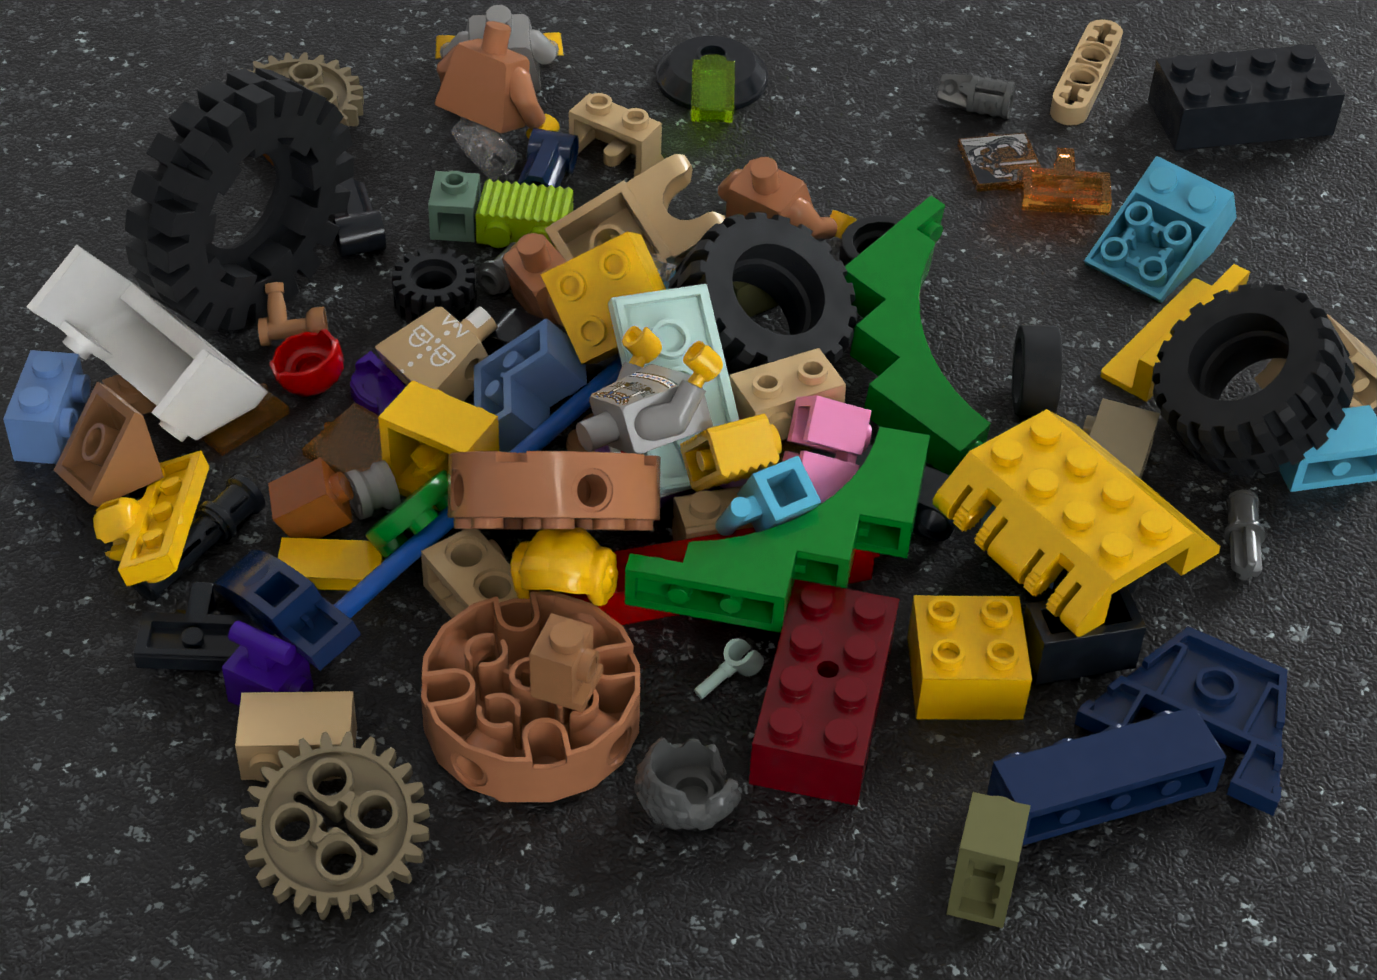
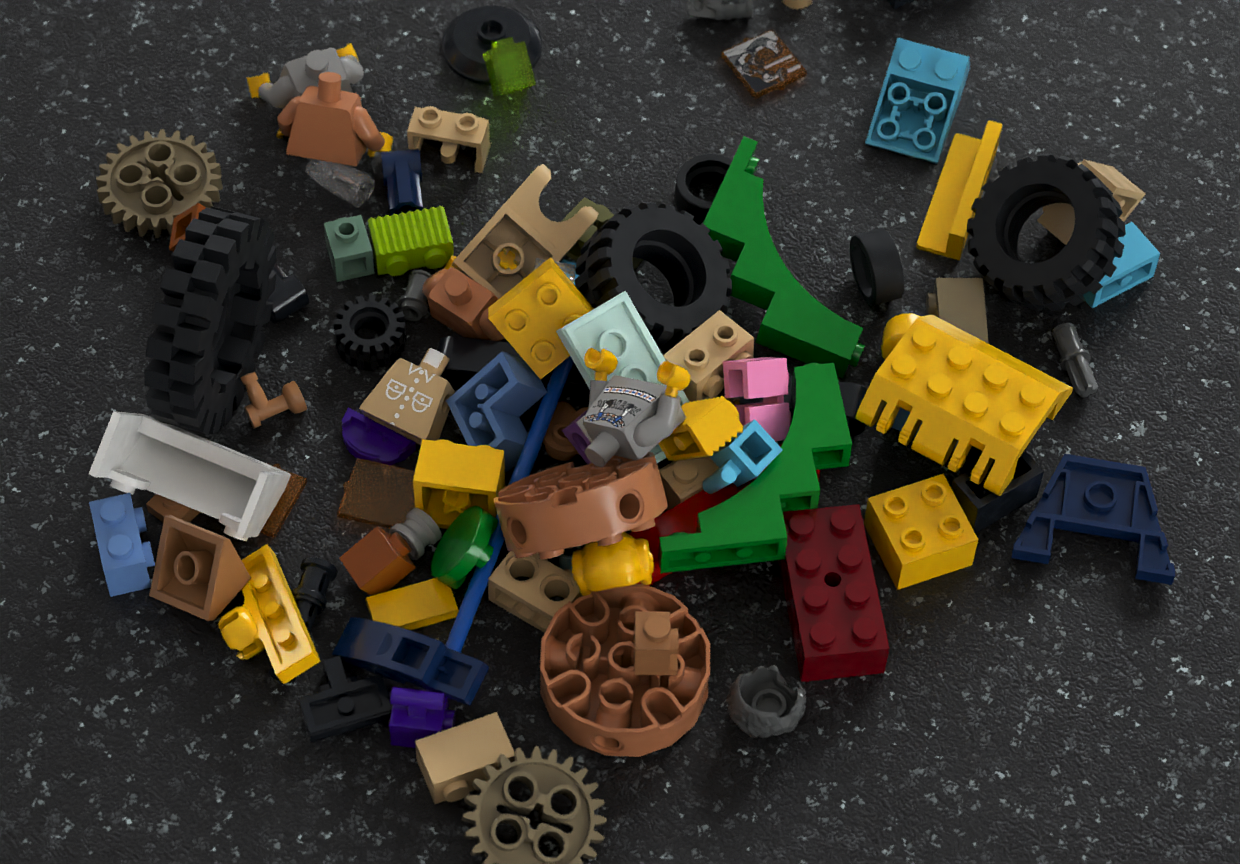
camera: 20 degrees left, 10 degrees up
(308, 363) = (306, 435): red hair -> none
(732, 653) = (750, 595): light aqua hand -> none
(775, 192) = (611, 172): nougat torso -> none
(988, 859) = (1001, 690): olive brick -> none
(1065, 188) = (827, 78): clear orange hinge -> none
(1110, 773) = (1051, 595): dark blue brick -> none

